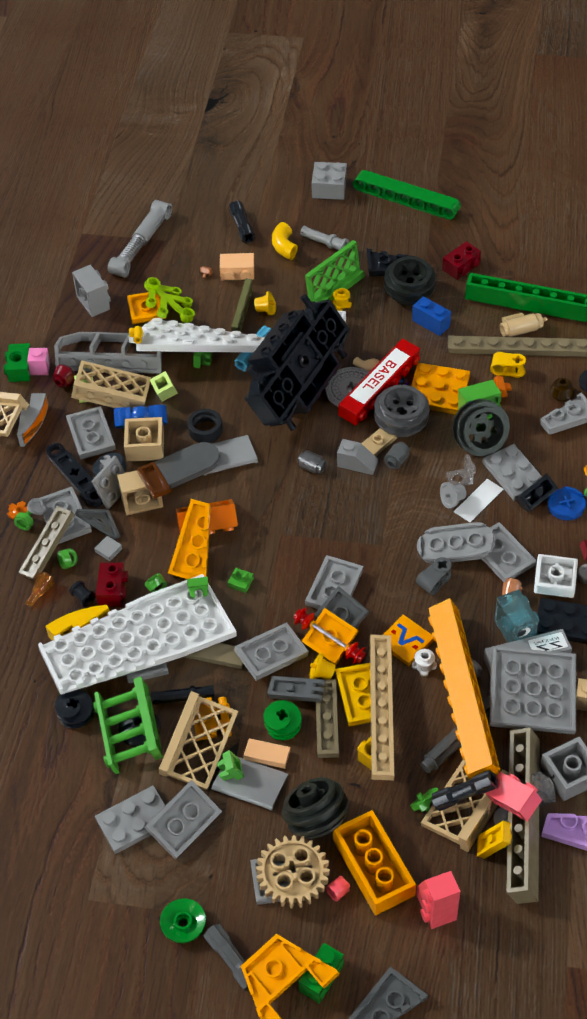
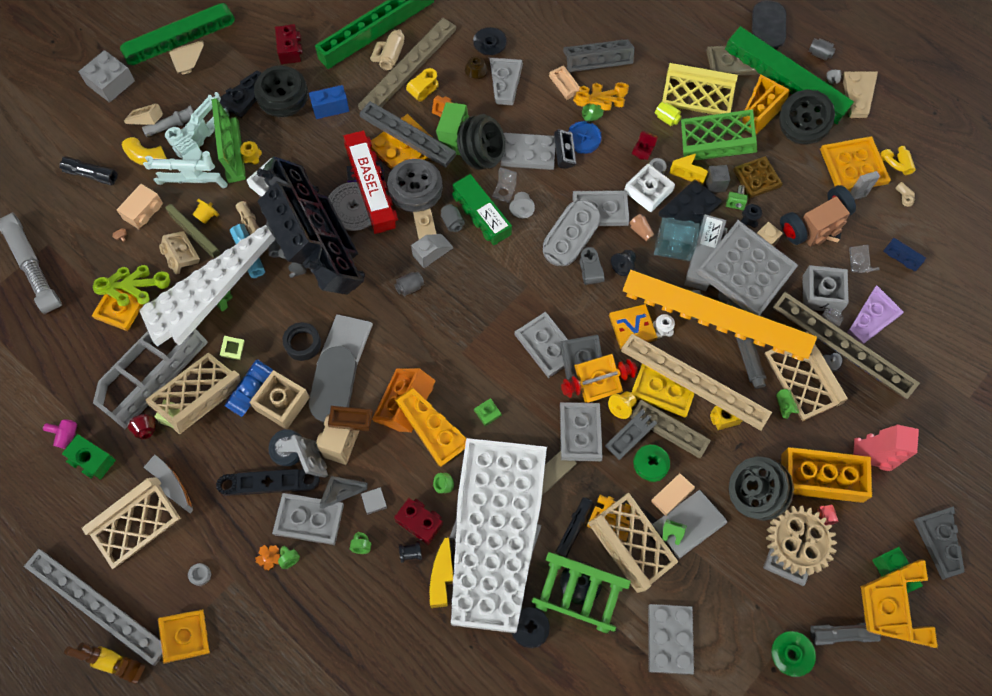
camera: 60 degrees left, 15 degrees up
(27, 337) = (64, 432): none -> dark pink piece
(36, 506) = (286, 538): light grey piece -> none
(38, 361) = (104, 438): bright pink brick -> none
(41, 585) = (374, 583): clear orange cone -> none
(46, 543) = (335, 552): dark tan plate -> none
(90, 432) = (229, 441): light grey plate -> none
(91, 290) = (60, 341): light grey brick -> none
(136, 333) = (162, 331): yellow arm -> none
(183, 819) = (701, 599): light grey plate -> none
(197, 584) = (481, 448): bright green tile -> none
(220, 311) = (178, 251): none -> tan bracket
(306, 259) = (186, 146): none -> light aqua piece
(315, 221) = (145, 115): none -> tan slope
(367, 364) = (338, 180): tan arm -> none
(389, 211) = (186, 56): none -> tan slope
(422, 470) = (481, 209): none -> green brick
(445, 379) = (408, 134): none -> dark grey plate
(463, 596) = (623, 262): none -> black piece
(478, 500) = (535, 189): white sticker -> none
(478, 784) = (815, 365): black axle -> none
(494, 839) = (857, 378): yellow plate -> none
(515, 796) = (840, 340): coral brick -> none

